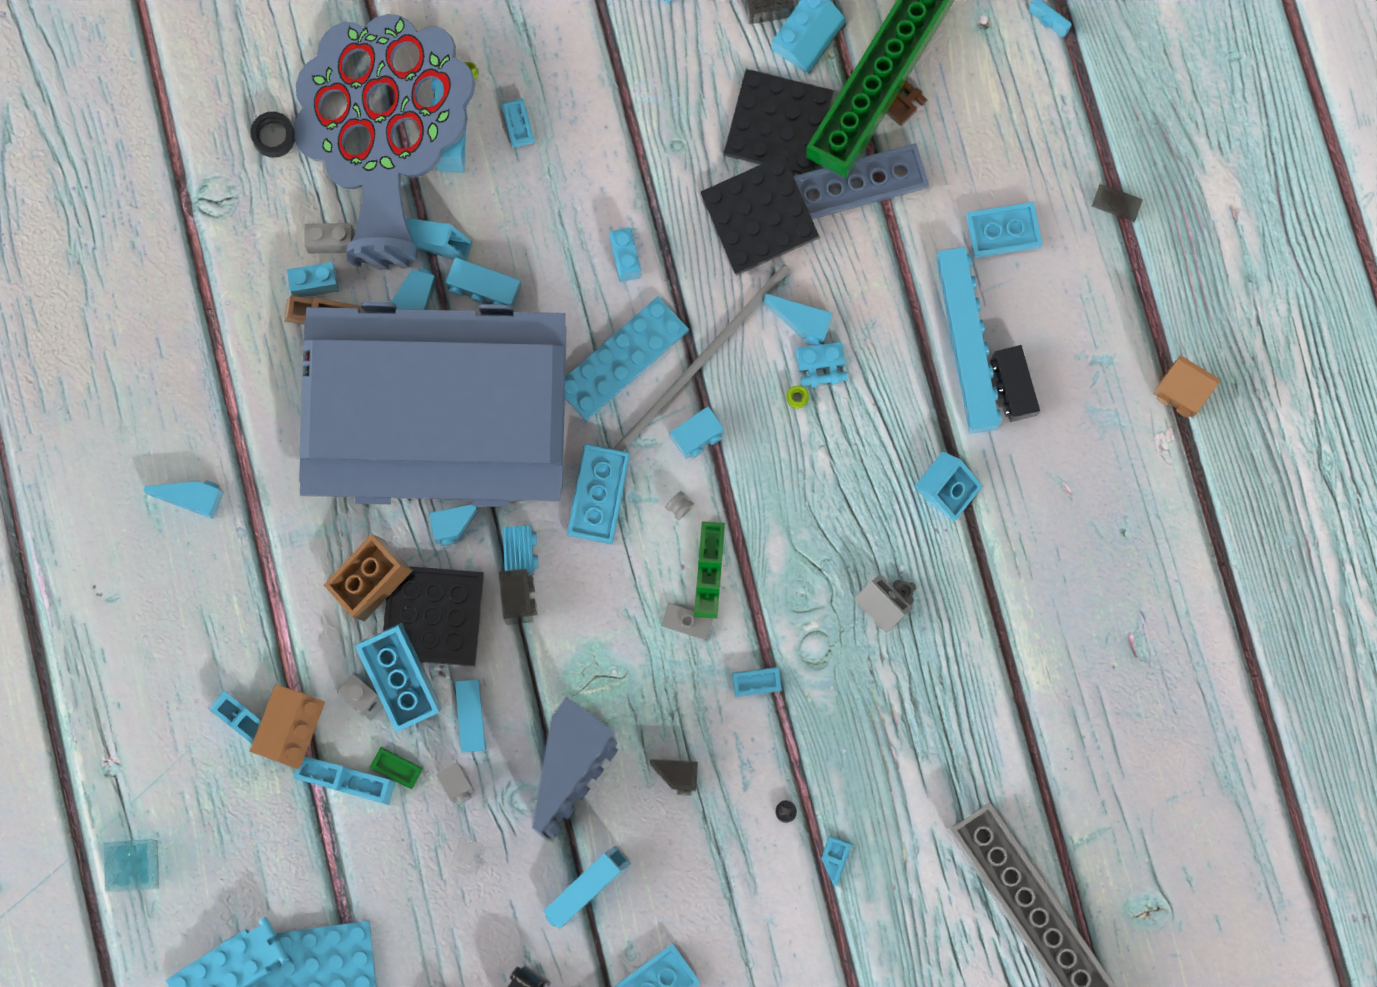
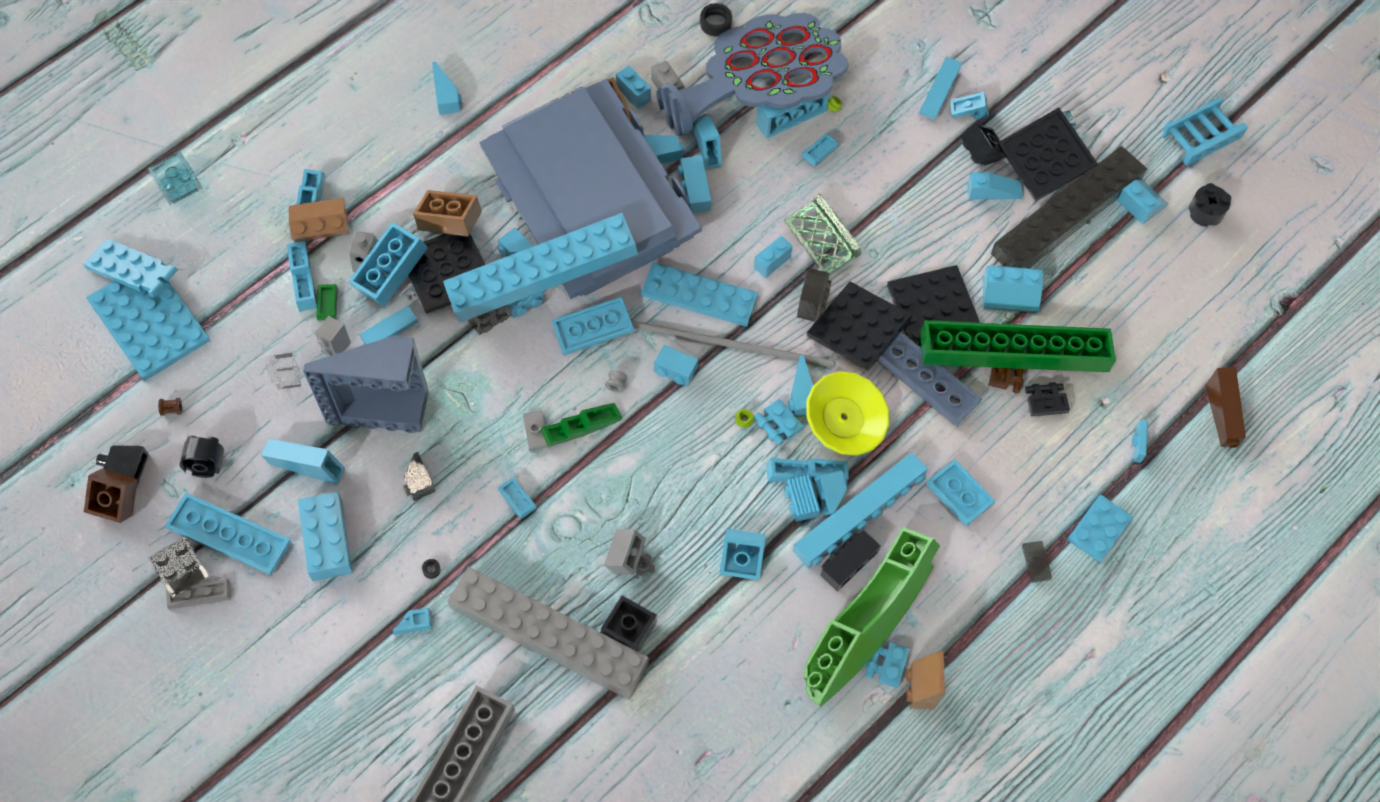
camera: 60 degrees right, 15 degrees down
(522, 513) = (540, 267): none -> medium azure brick
(626, 166) = (837, 229): none -> clear green fence
(690, 904) = (325, 536): none -> medium azure brick
(701, 240) = (814, 295): none -> clear smoke brick
(869, 273) = (860, 404): none -> neon yellow dish
(892, 367) = (783, 469): none -> medium azure slope
(922, 391) = (802, 498): none -> medium azure brick
(925, 728) = (548, 632): none -> light grey brick
(933, 357) = (831, 490): none -> medium azure slope
(957, 81) = (1047, 404): none -> black plate
(965, 643) = (629, 623): none -> black brick
(1087, 400) = (870, 617): none -> bright green slope
(1115, 118) = (1100, 528): none -> medium azure plate
(1142, 407) = (892, 667): none -> medium azure plate

